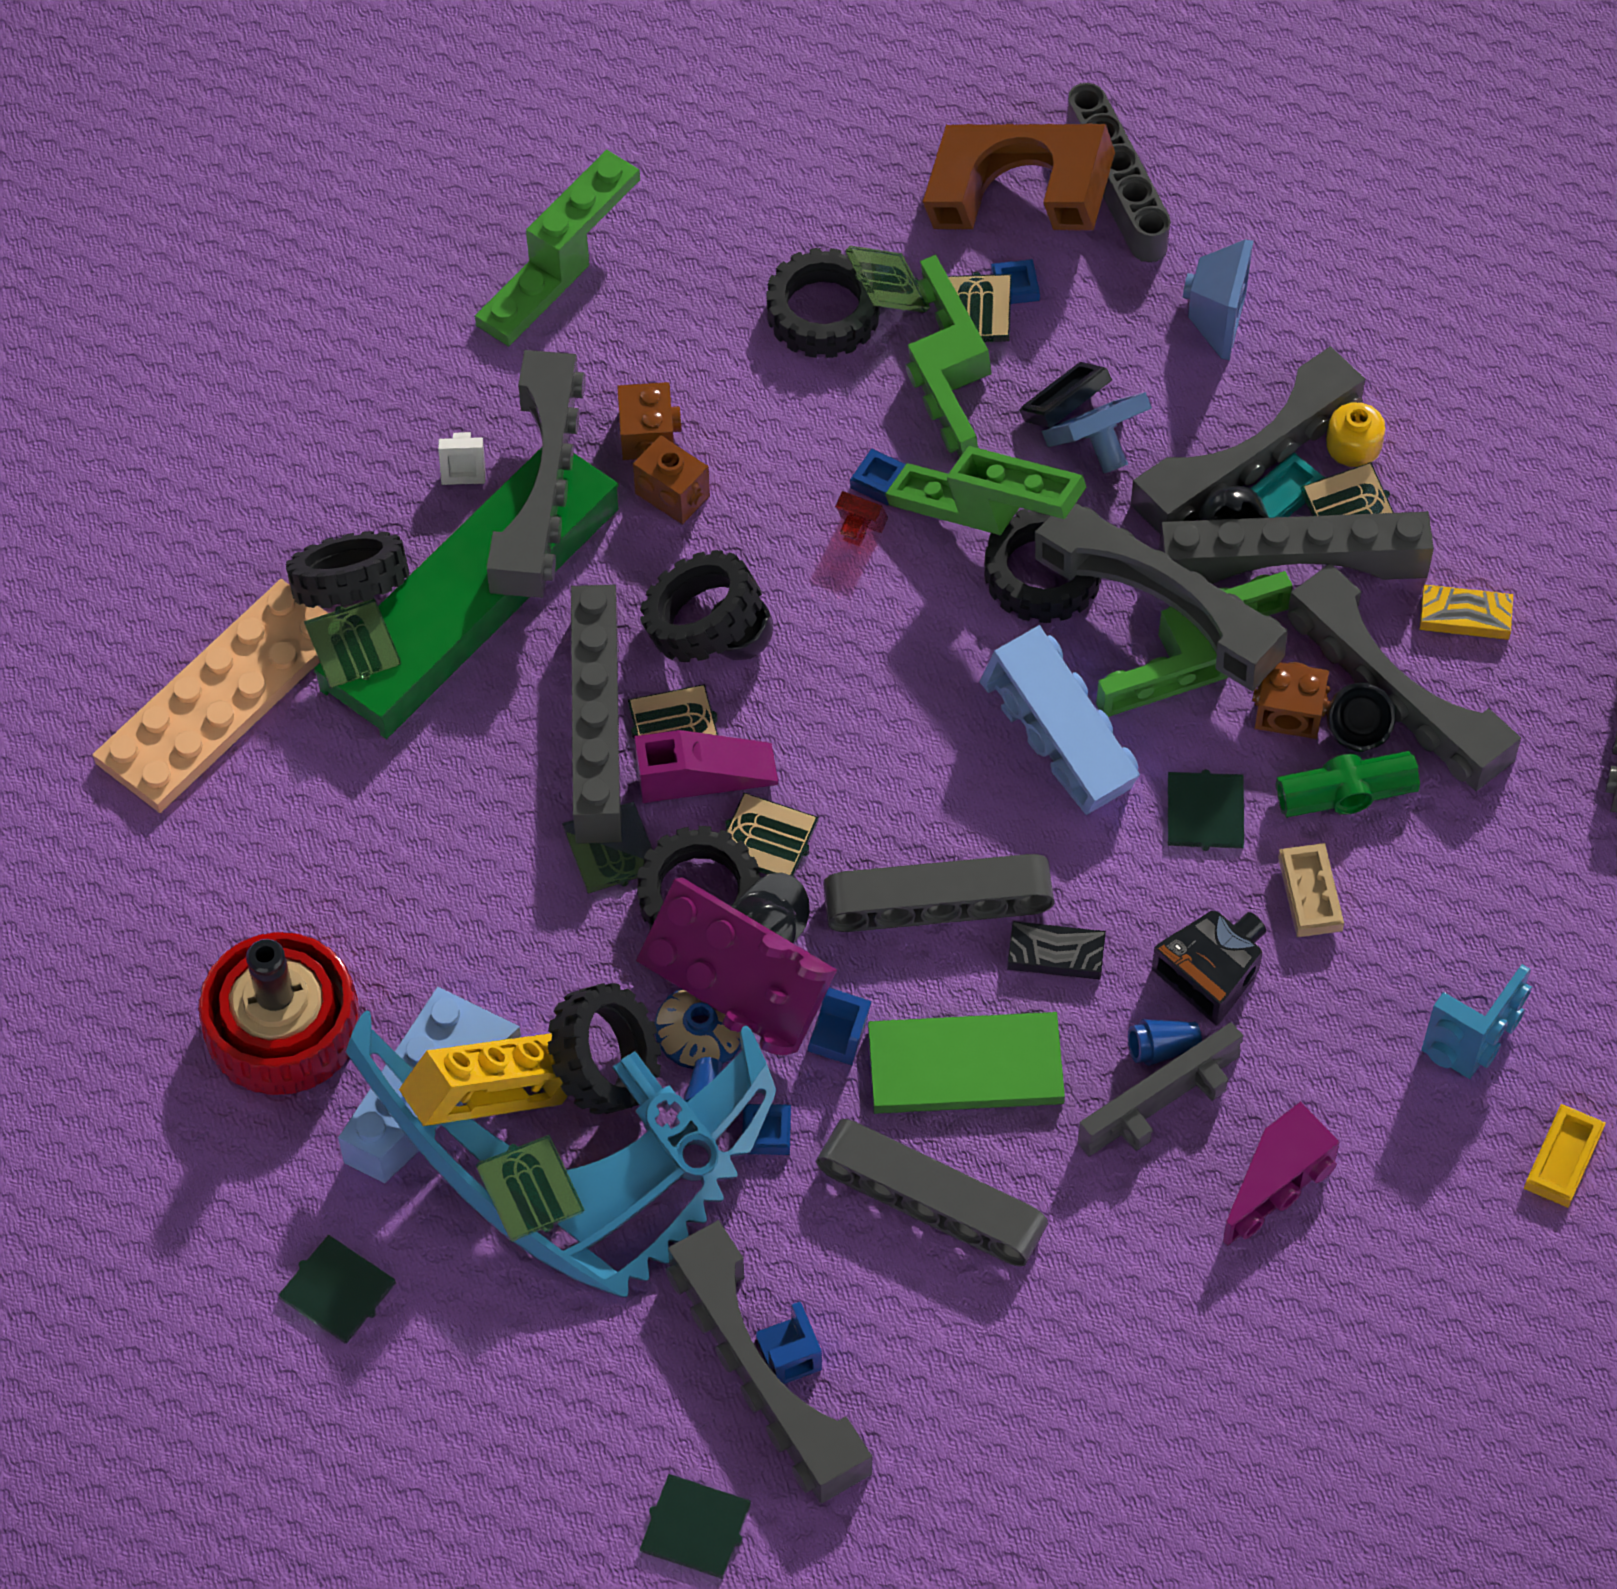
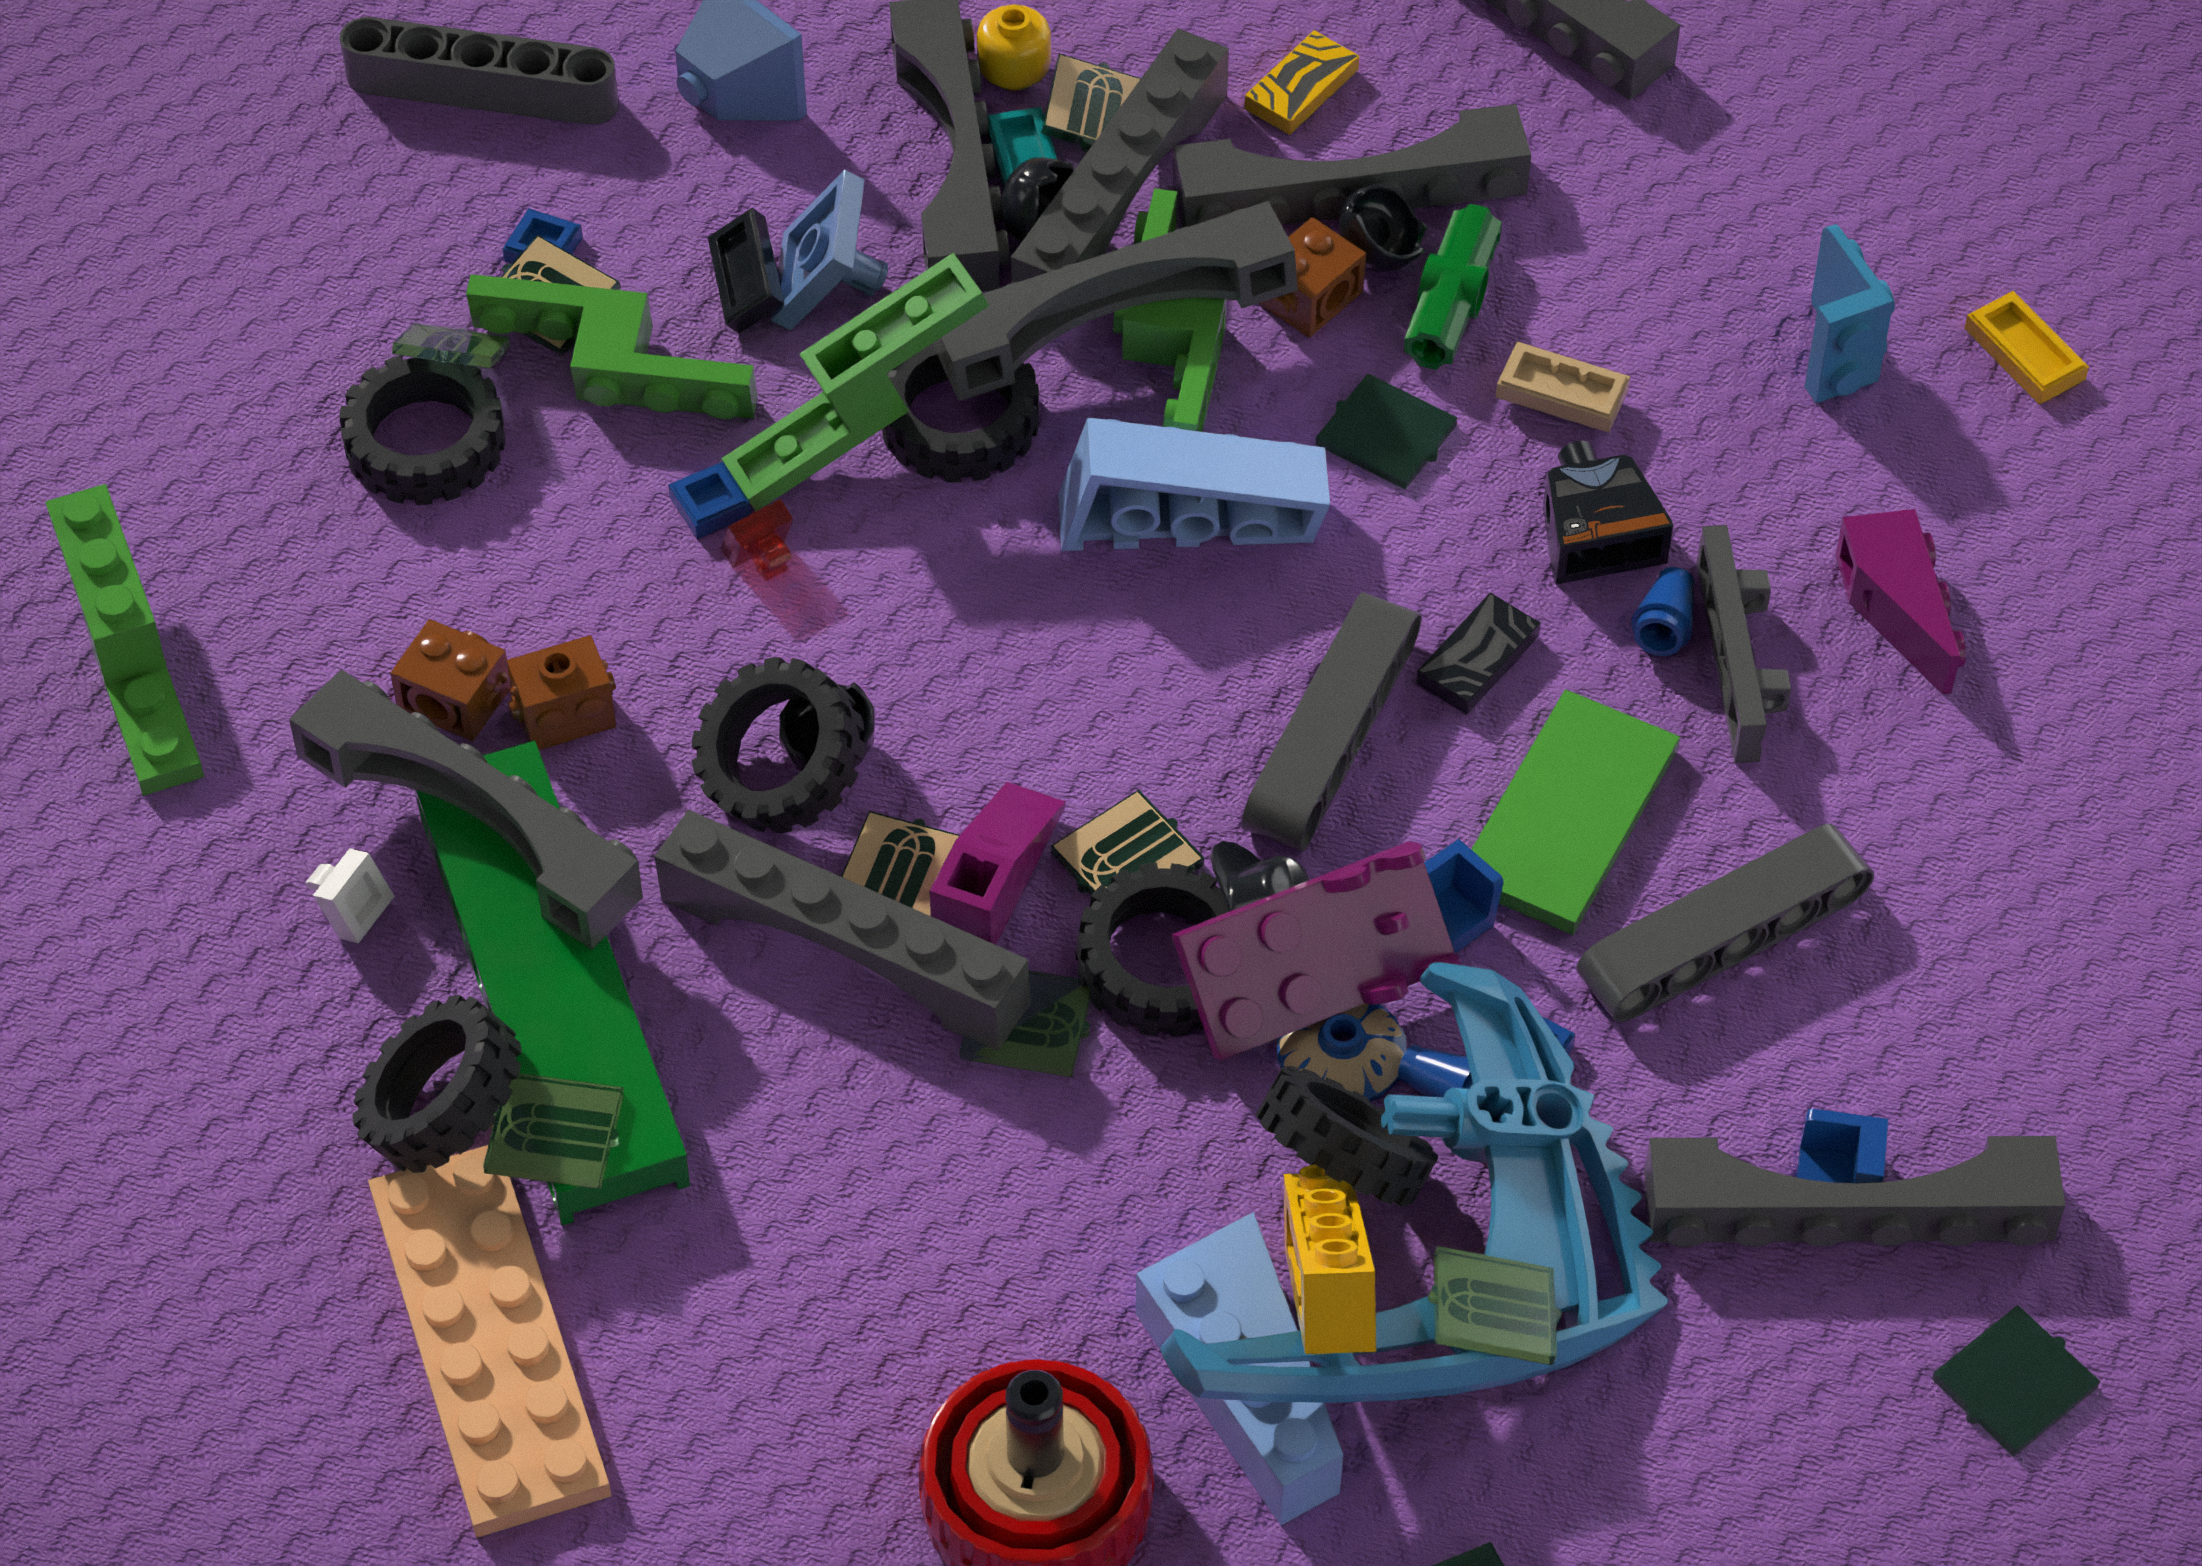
camera: 60 degrees left, 5 degrees down
(979, 153) = (443, 79): dark orange arch -> none

